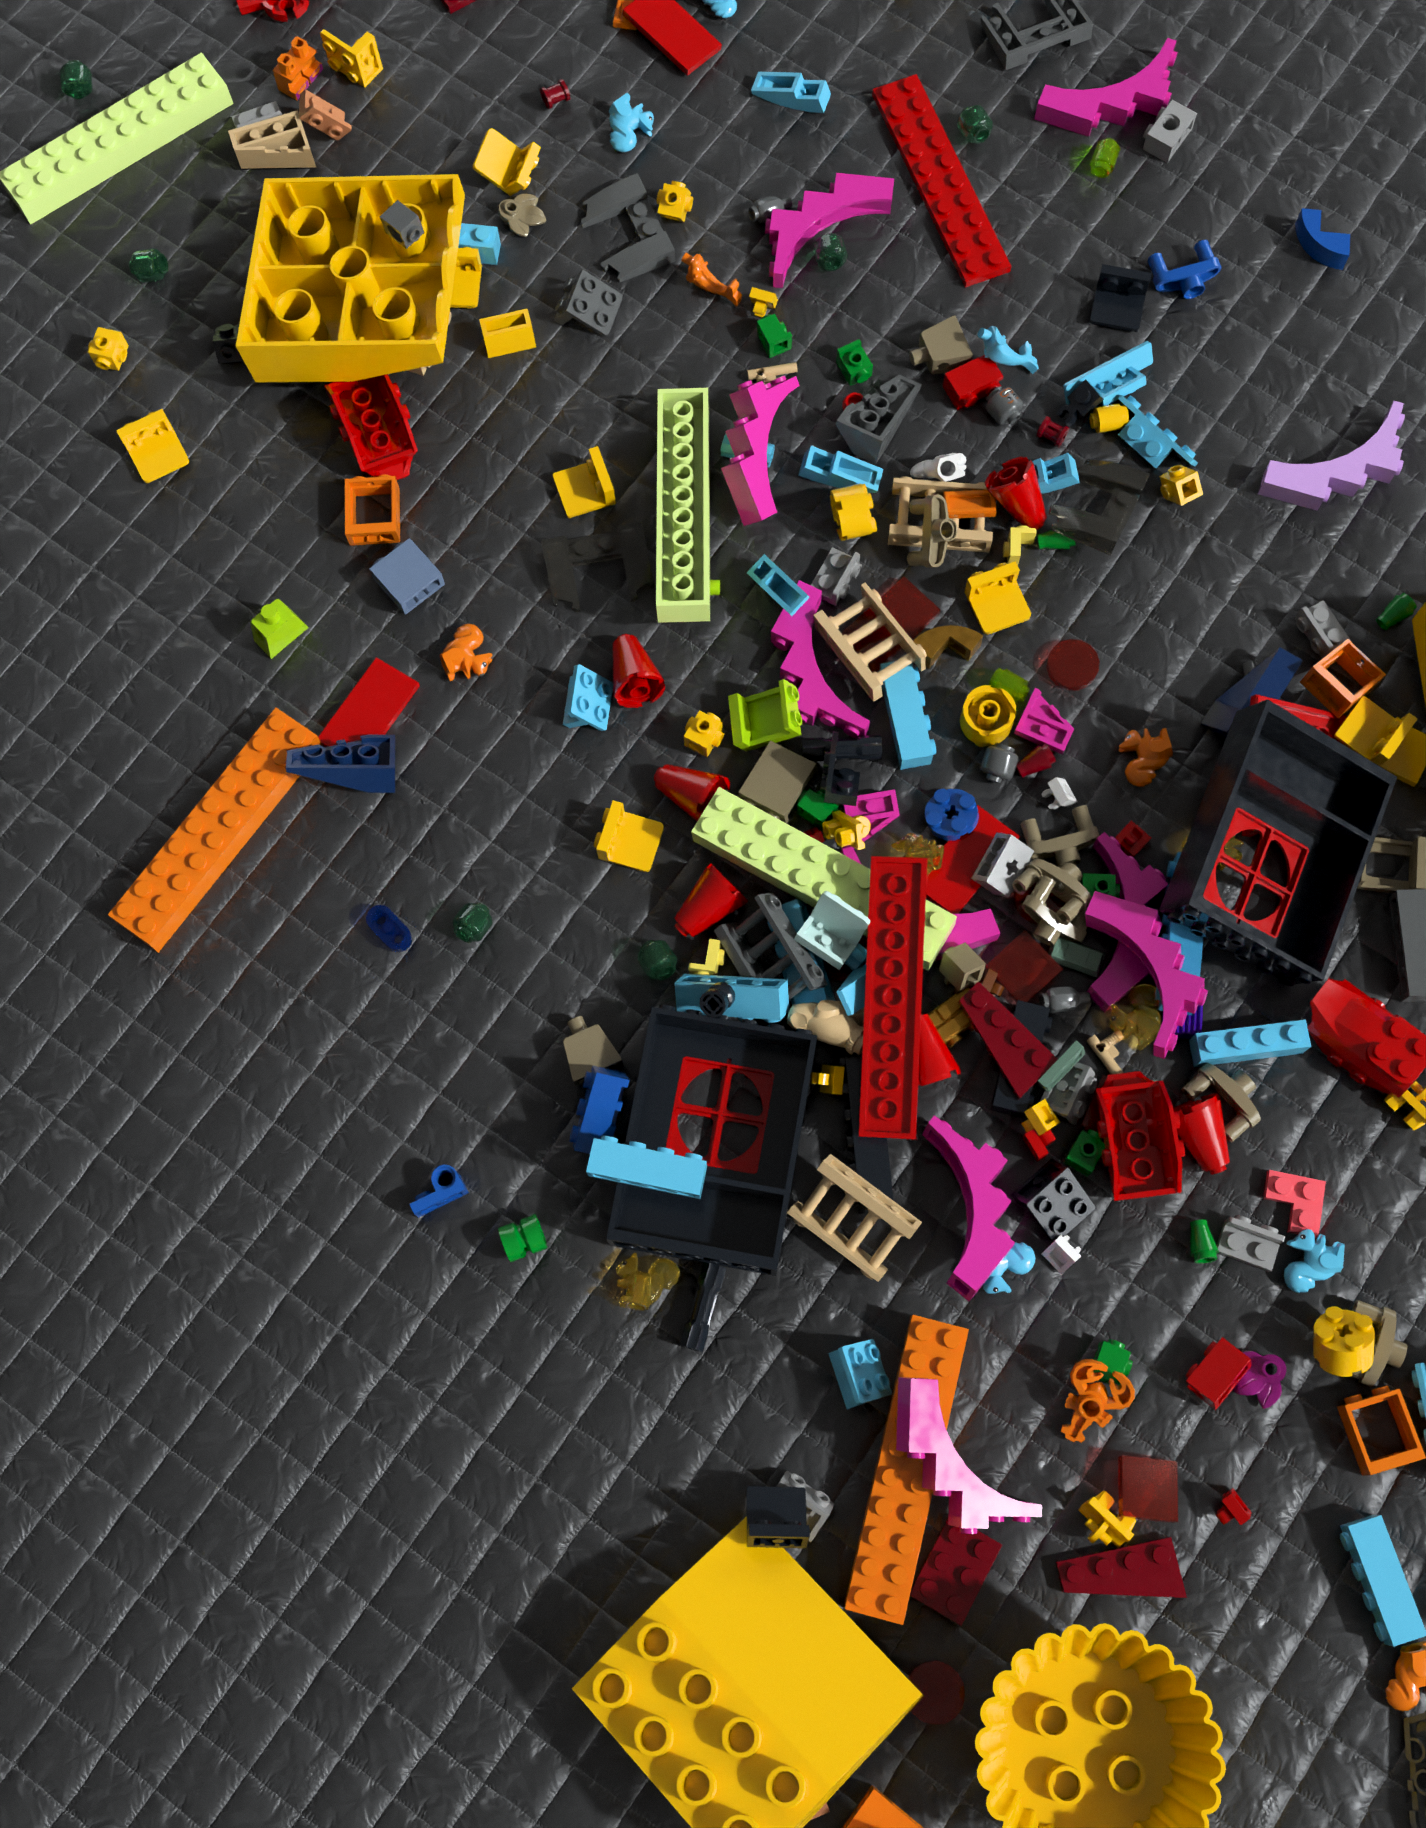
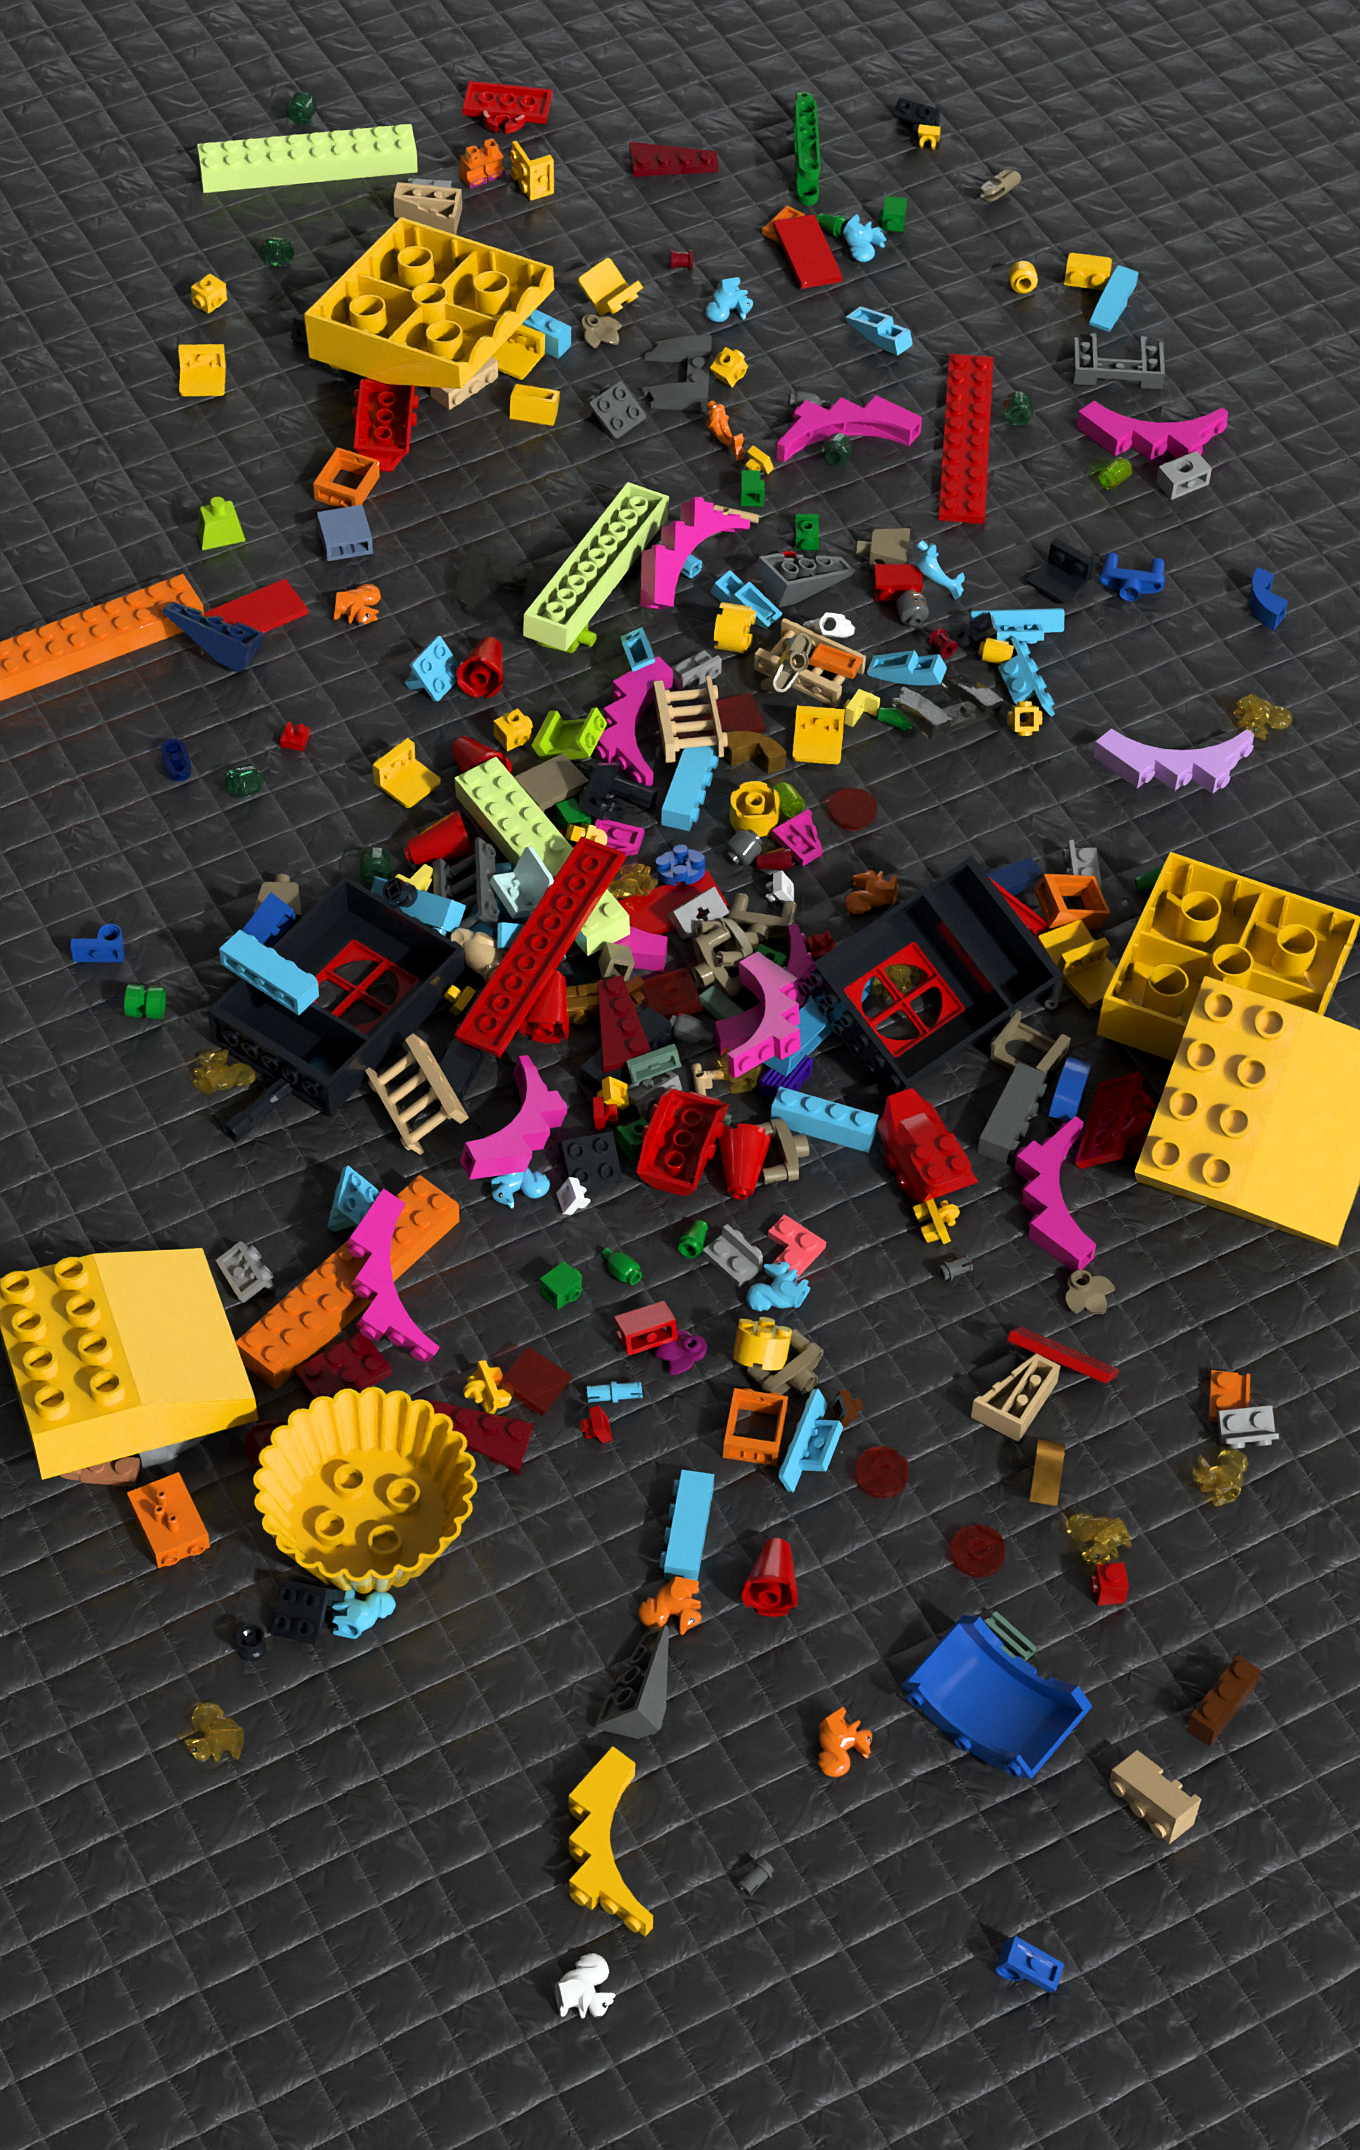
camera: 20 degrees right, 20 degrees down
(323, 115) = (480, 202): nougat bracket -> none
(402, 224) = (484, 279): dark grey brick -> none
(490, 841) = (295, 736): none -> red tile
(585, 486) = (529, 531): yellow bracket -> none
(776, 1517) = (218, 1253): black bracket -> none
(1019, 491) = (880, 667): red cone -> none
(1094, 1398) = (530, 1296): orange animal -> none
(1152, 1308) = (622, 1266): none -> green plant
(1226, 1459) = (614, 1391): none -> medium azure pin
(1387, 372) = (1259, 712): none -> clear yellow animal

